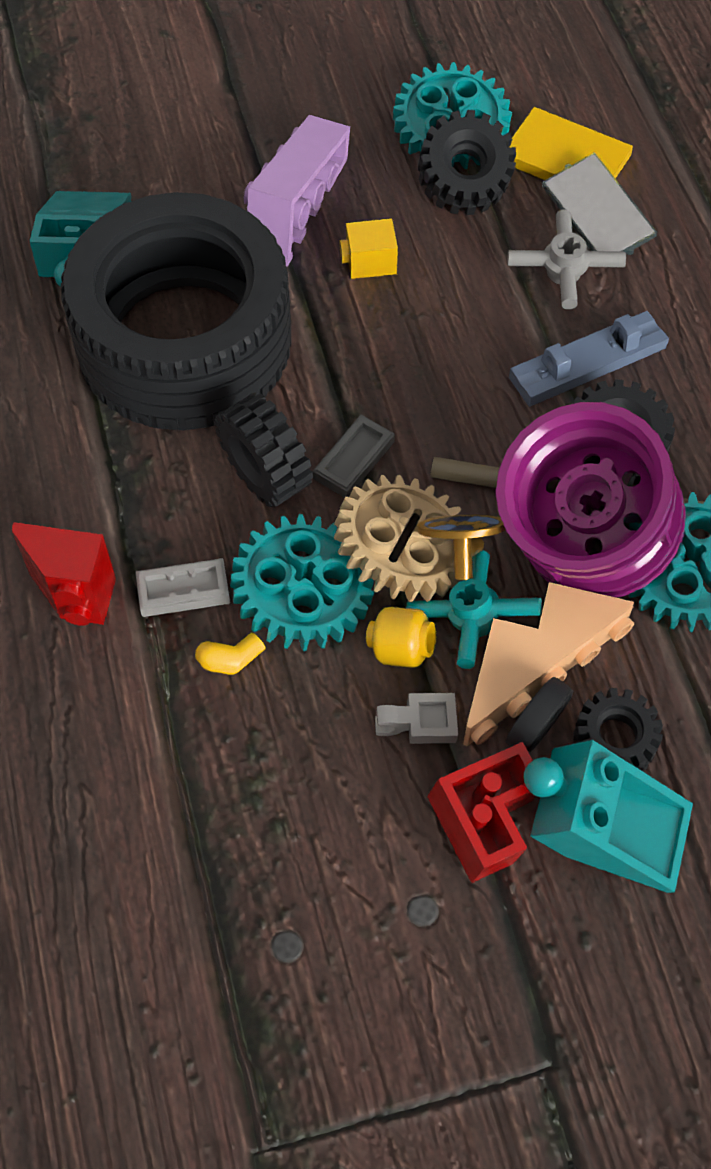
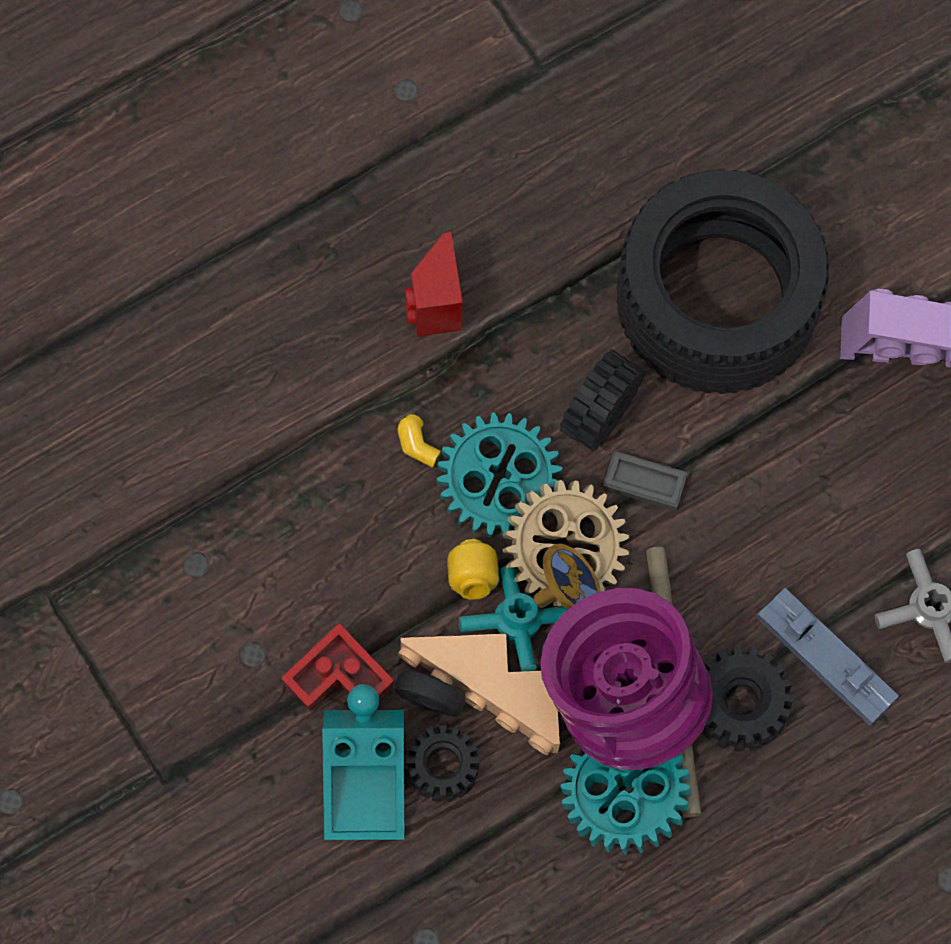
camera: 70 degrees right, 10 degrees up
(63, 222) = (807, 159): teal slope -> none
(182, 587) = (464, 384): light grey plate -> none
(370, 248) = (876, 424): yellow brick -> none
(426, 717) = (408, 609): light grey plate -> none

